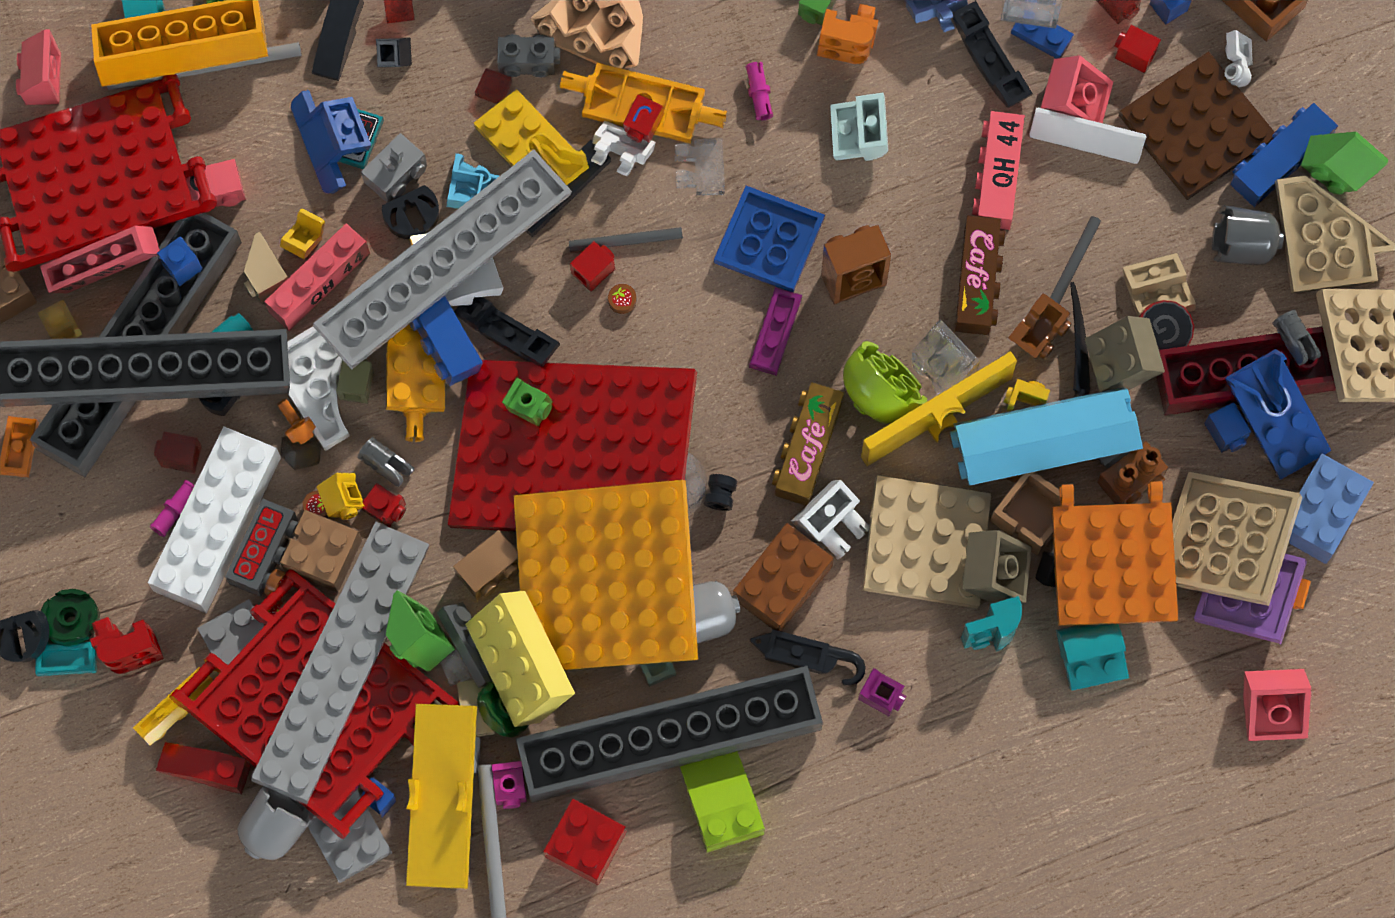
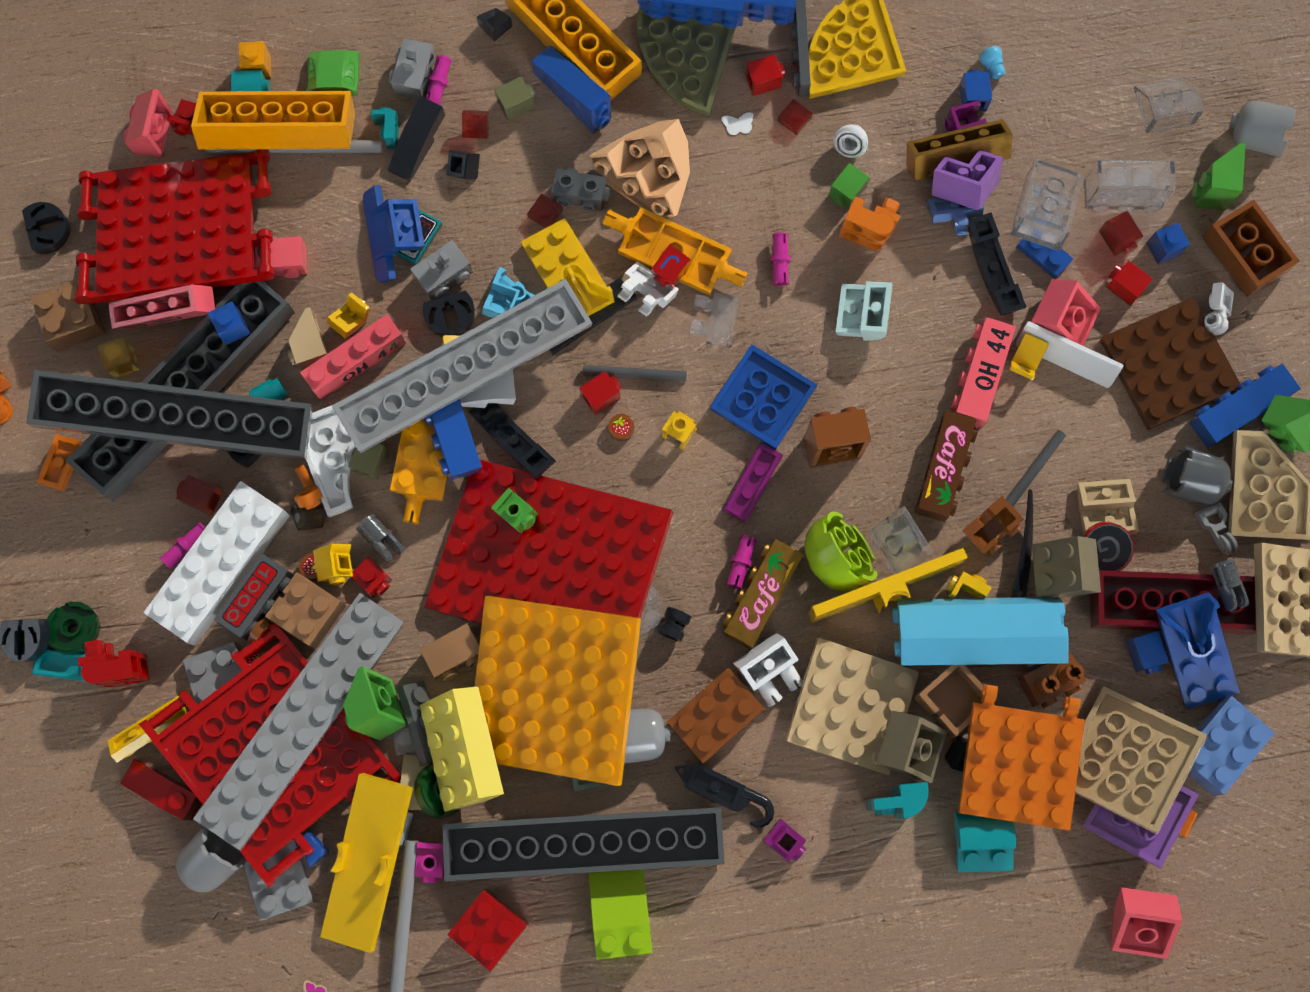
camera: 10 degrees right, 5 degrees up
(78, 57) = (182, 120): none -> red bracket
(303, 20) = (388, 124): none -> teal bracket
(687, 285) = (680, 427): none -> yellow window
(779, 415) = (741, 562): none -> dark pink pin
(1045, 144) = (1028, 356): none -> yellow bracket
(1290, 299) = (1225, 542): none -> light grey piece

